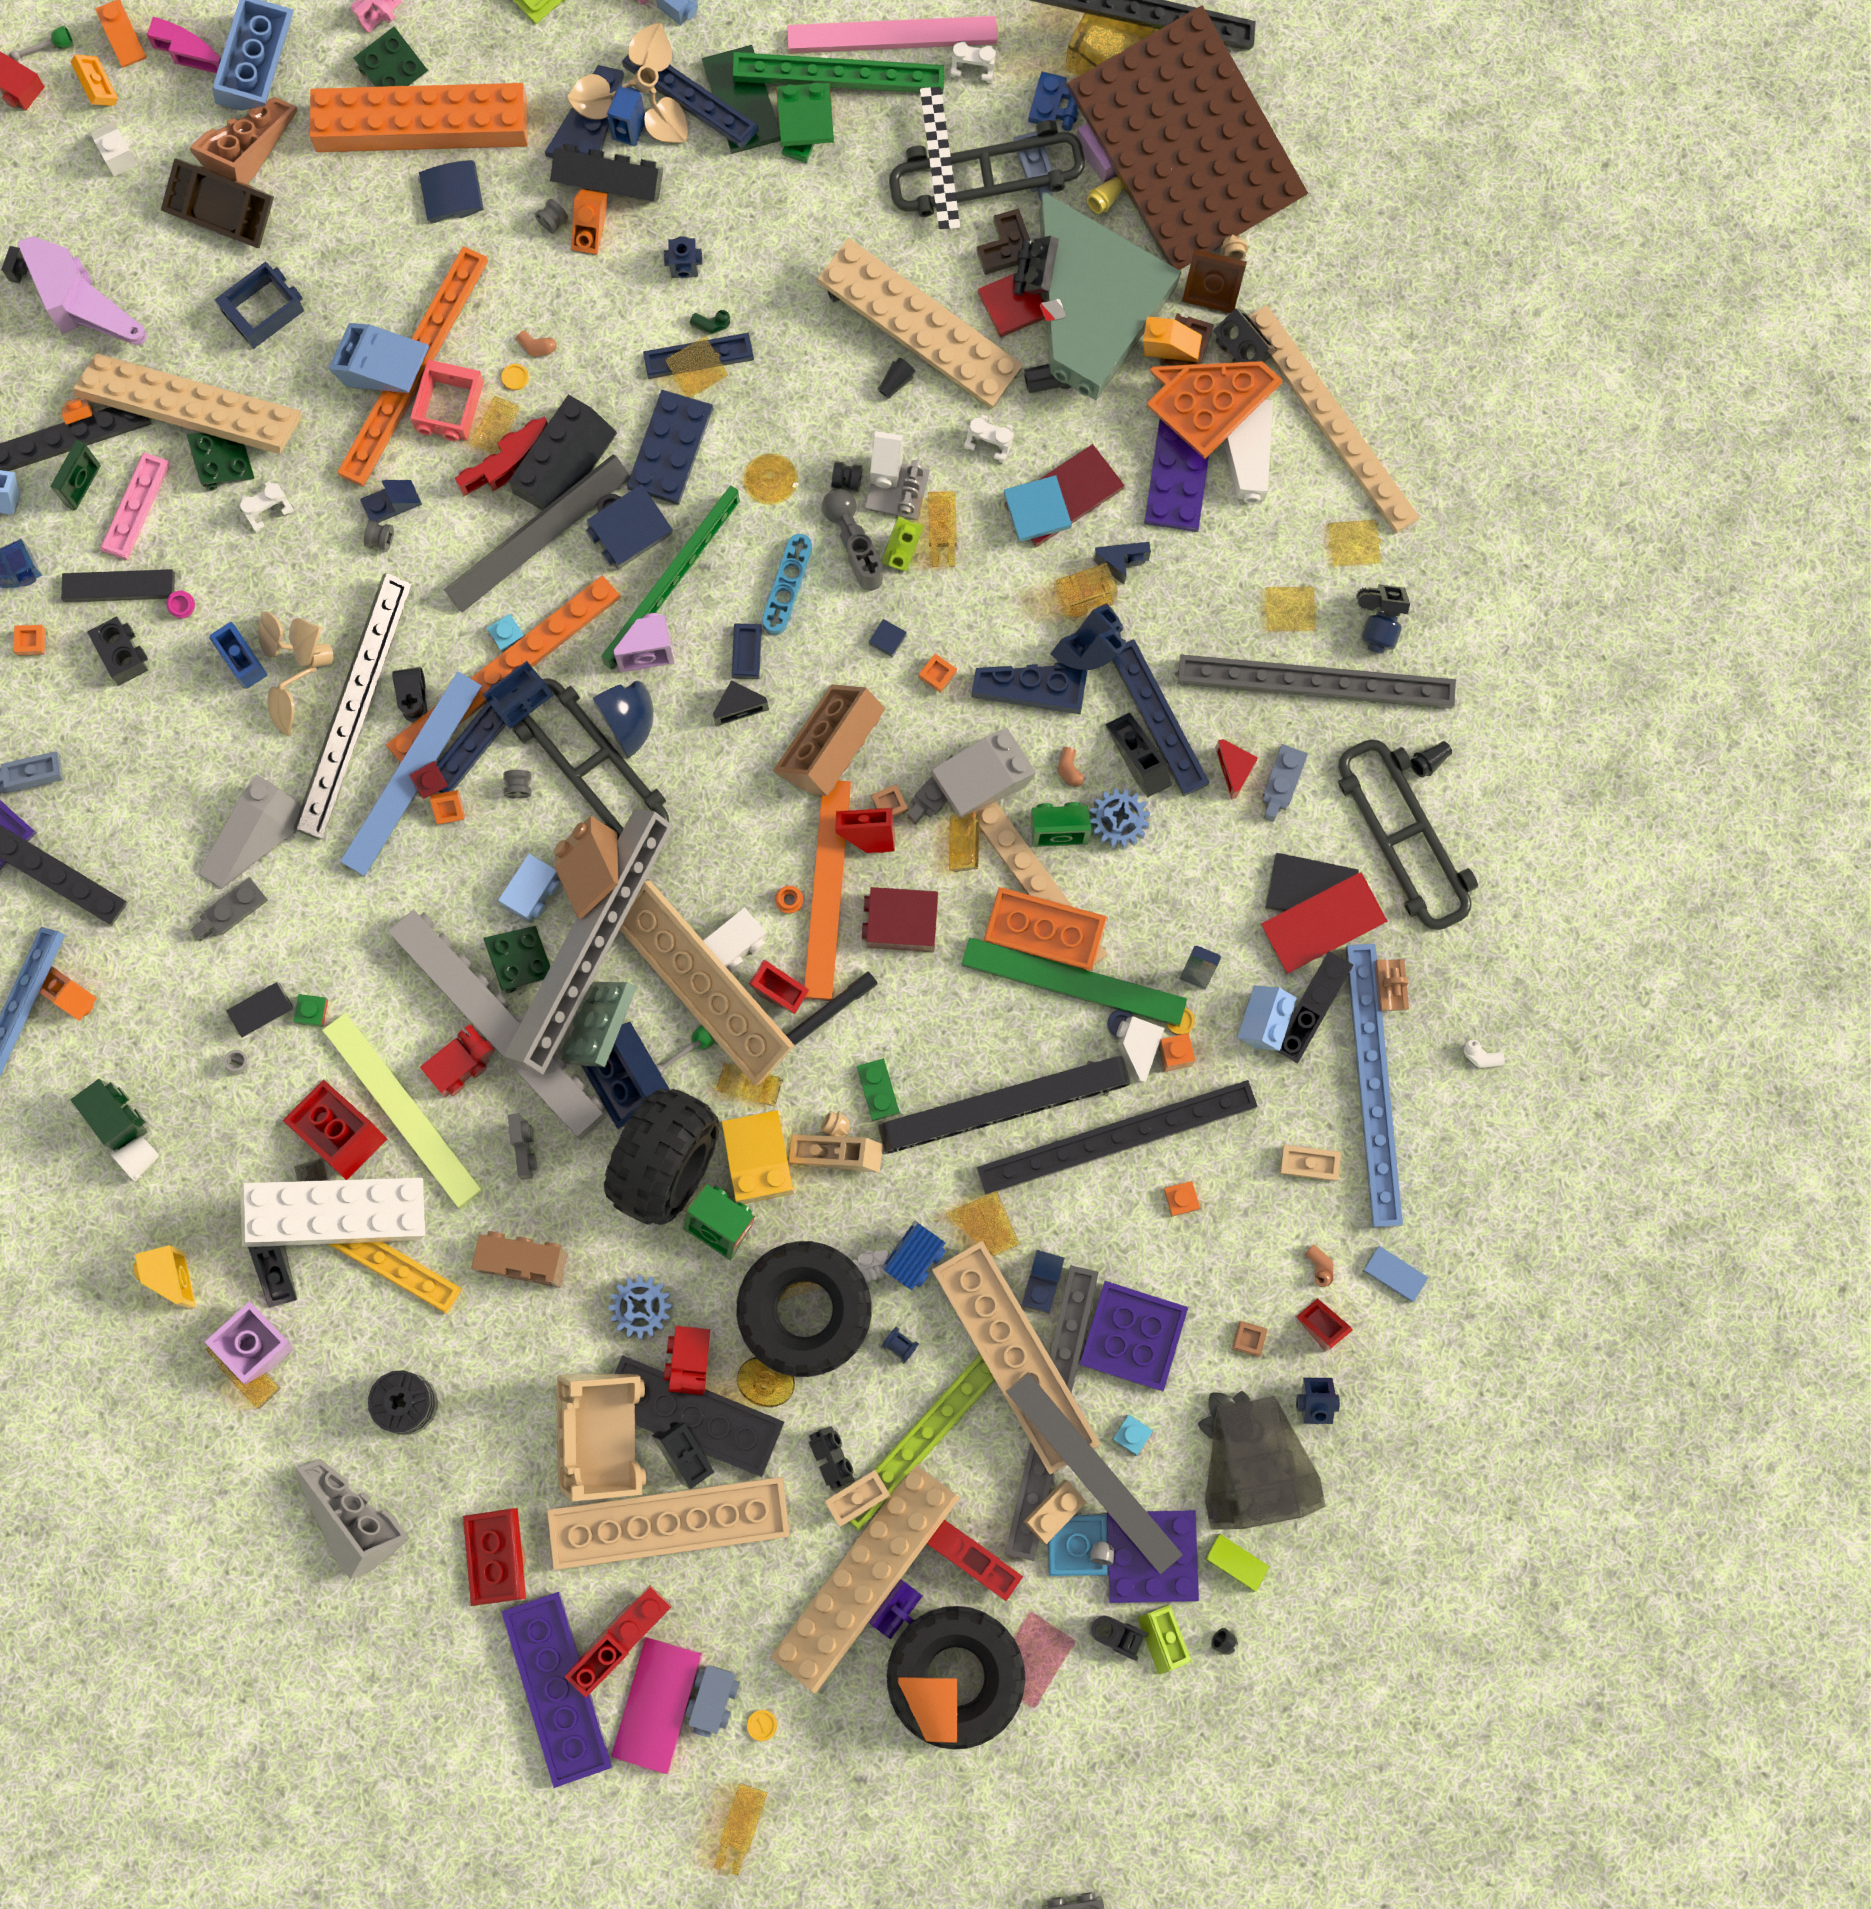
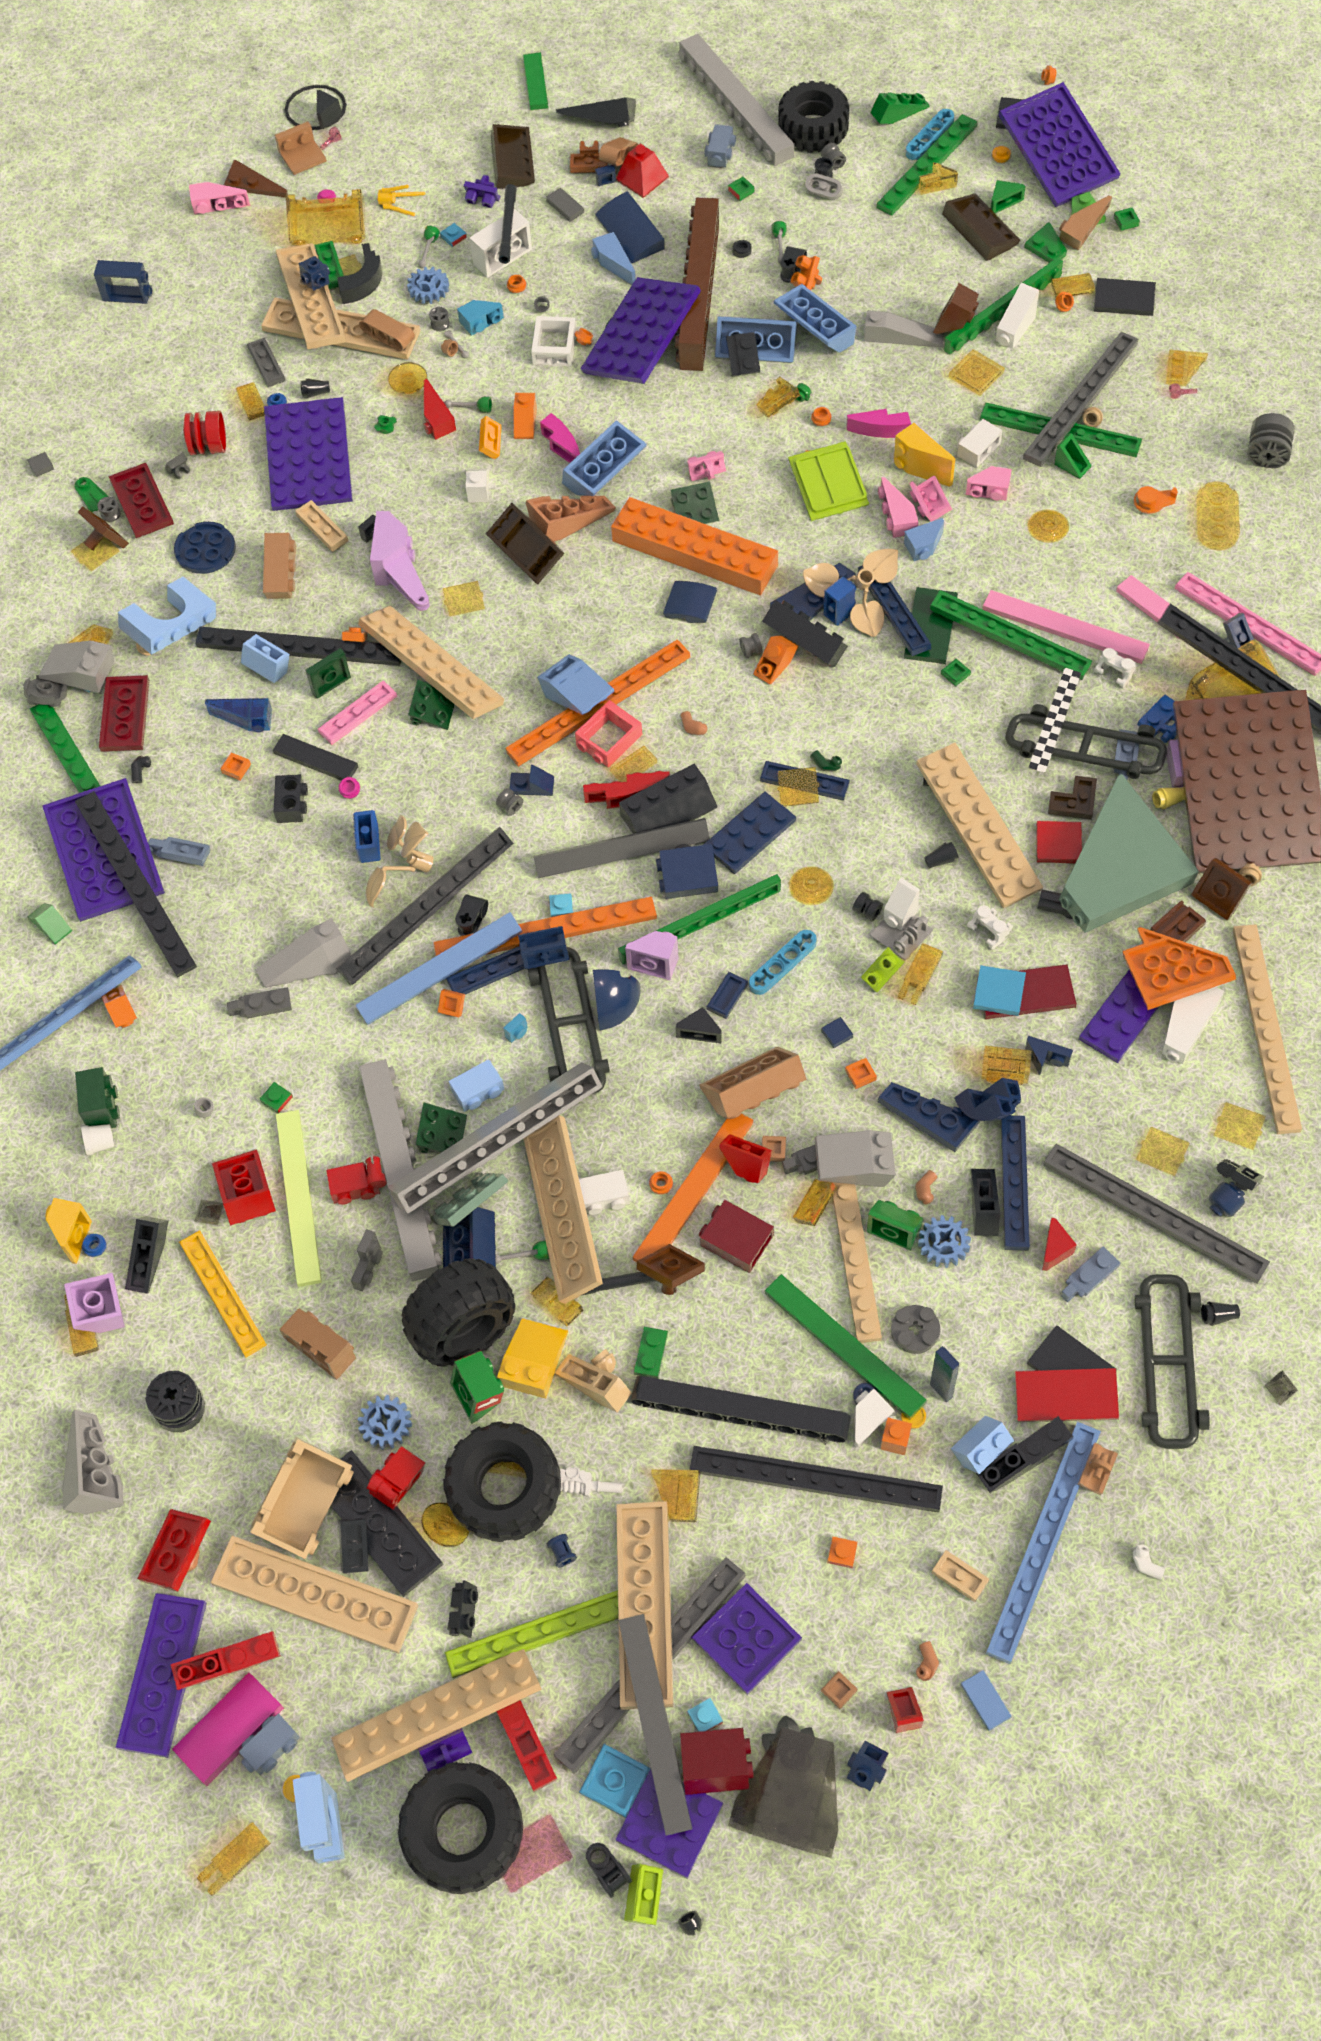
camera: 35 degrees right, 15 degrees down
(179, 304) = (463, 598): none -> clear yellow piece
(195, 1277) = (91, 1239): none -> blue plate
(249, 286) = (512, 606): dark blue window -> none
(260, 1009) = (241, 1078): black hinge -> none
(270, 496) = (435, 744): white piece -> none
(332, 1212) = (205, 1238): white brick -> none
(428, 780) = (447, 977): dark red plate -> none
(515, 377) = (665, 740): yellow piece -> none
(517, 784) = (509, 1009): dark grey wheel -> none
(537, 801) = (516, 1028): none -> dark azure plate
(587, 864) = (525, 1082): medium nougat slope -> none
(683, 257) = (829, 710): dark blue brick -> none
(778, 987) = (616, 1238): red slope -> none
(805, 114) = (970, 650): green slope -> none
(813, 1749) = (318, 1817): none -> light blue arch
(840, 508) = (850, 926): dark grey beam -> none
(853, 990) = (670, 1267): none -> reddish brown tile
(857, 1498) = (463, 1648): tan plate -> none
(914, 1256) = (608, 1486): blue brick -> none
(933, 1706) = (426, 1833): orange slope -> none
(1042, 259) = (1086, 820): black plate -> none
(1043, 1281) = (698, 1560): dark blue slope -> none
(1045, 928) = (843, 1294): orange tile -> none
(1052, 310) = (1082, 854): light grey sticker -> none
(1055, 1511) = (609, 1741): tan plate -> none
(1102, 1553) = (628, 1795): light grey hinge -> none
(1132, 942) = (906, 1338): none -> dark grey plate
(1169, 1475) = (715, 1761): none -> dark red brick
(1170, 340) = (1164, 914): light orange slope -> none
(1237, 1563) = (734, 1864): lime slope -> none
(1248, 336) = (1226, 939): black brick -> none
(1527, 808) = (1281, 1387): none -> clear smoke slope

